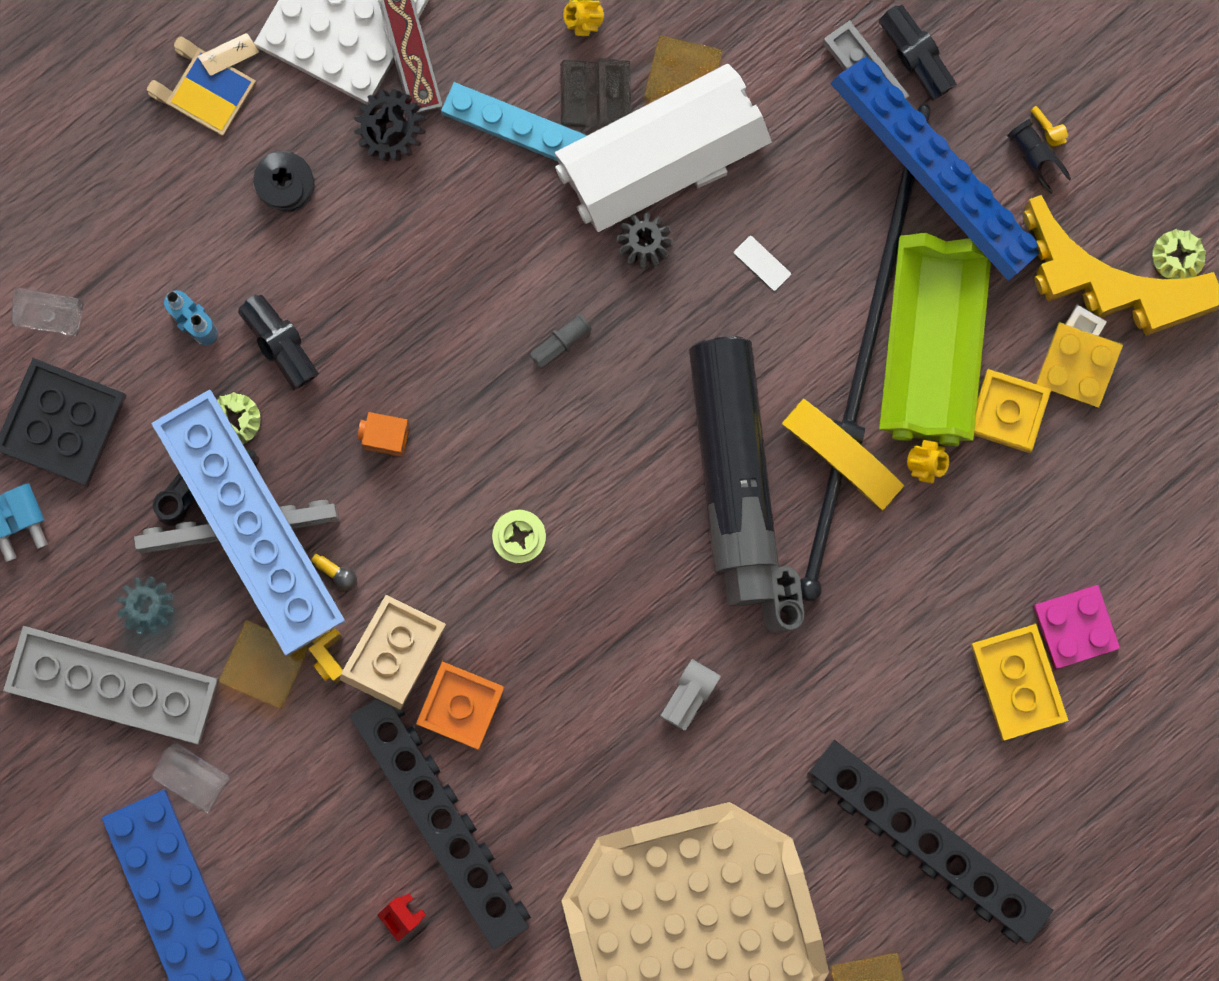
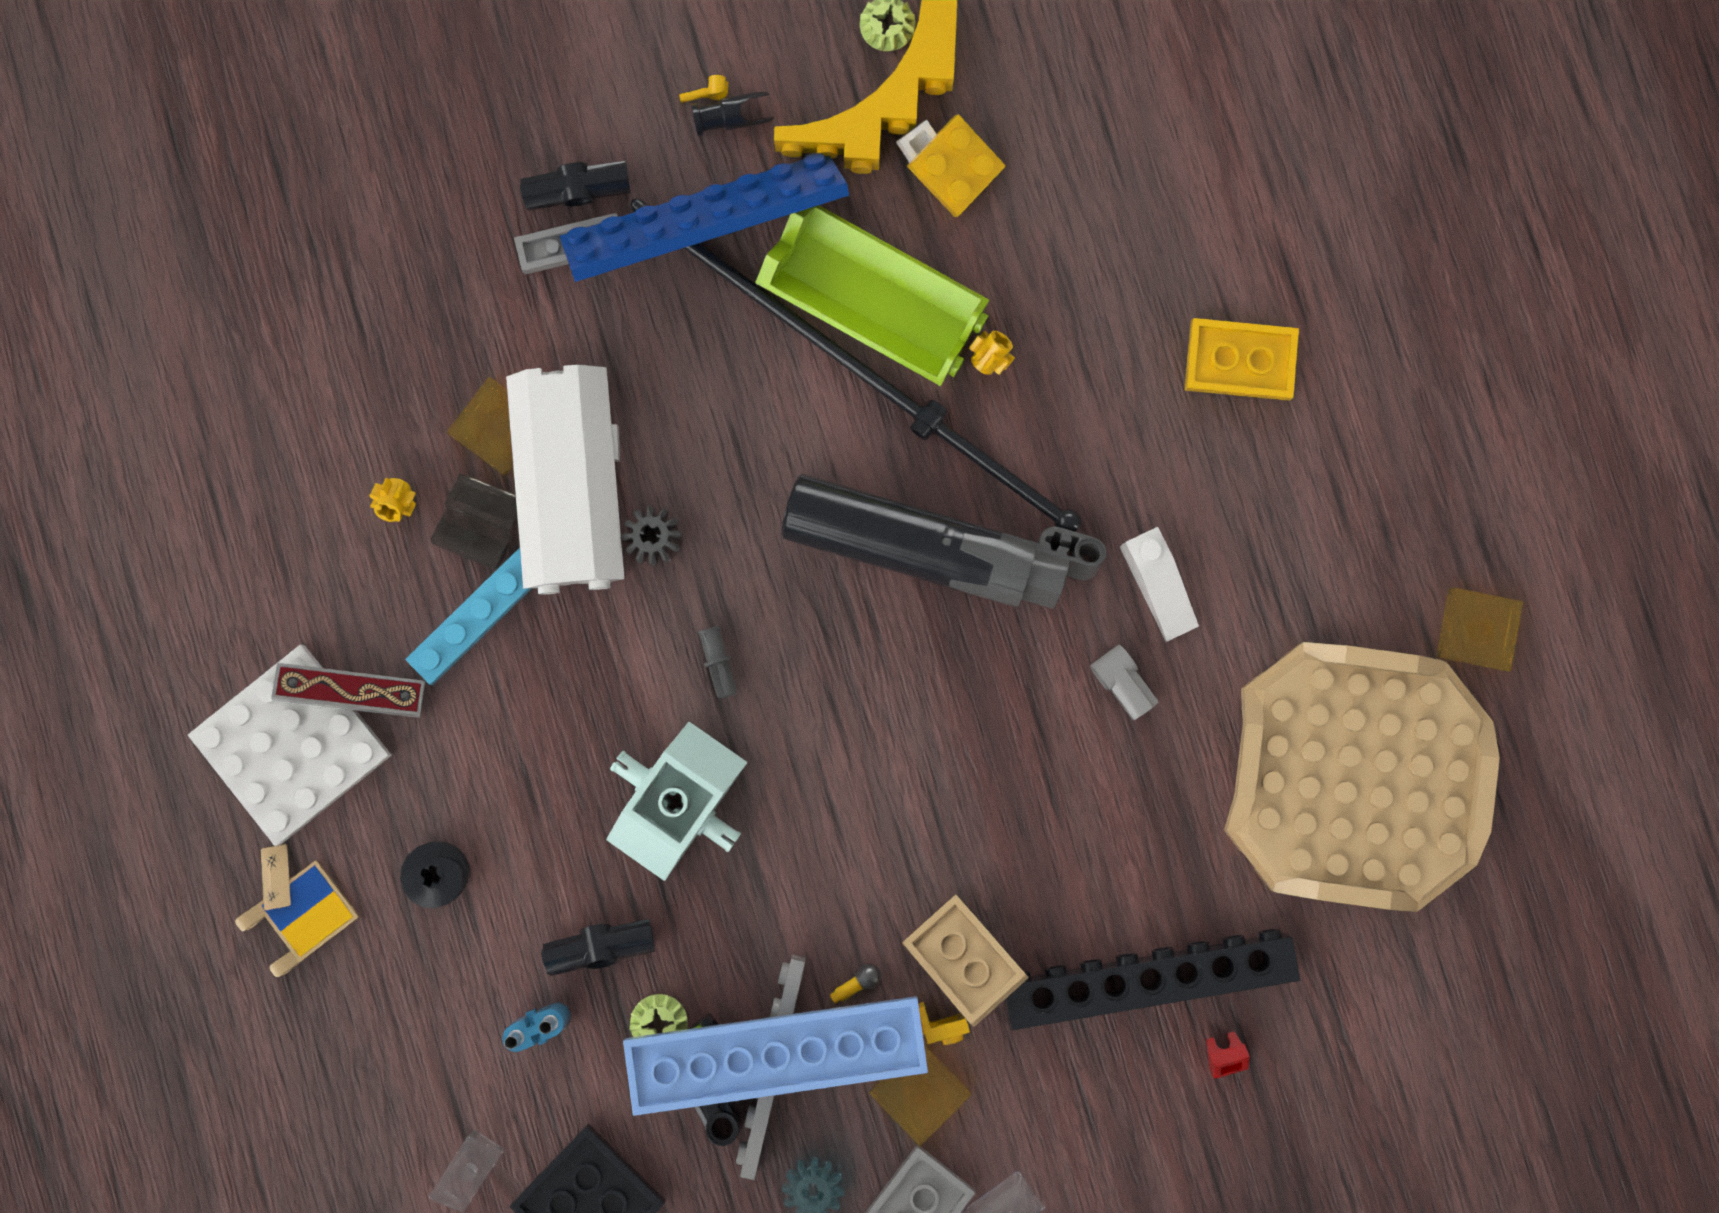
camera: 65 degrees left, 5 degrees up
(384, 434) = (738, 878): orange brick -> none
(390, 113) = (408, 733): black gear -> none
(460, 361) = (701, 774): none -> light aqua slope
(460, 705) = (1043, 913): orange plate -> none
(525, 522) = (909, 797): yellowish green gear -> none
(762, 263) = (722, 429): white sticker -> none
(789, 691) = (1160, 583): none -> white slope
(843, 453) = (947, 432): yellow slope -> none
(1010, 410) = (973, 251): yellow plate -> none
(1030, 909) = (1468, 445): black brick -> none
(1076, 627) = (1209, 281): dark pink plate -> none

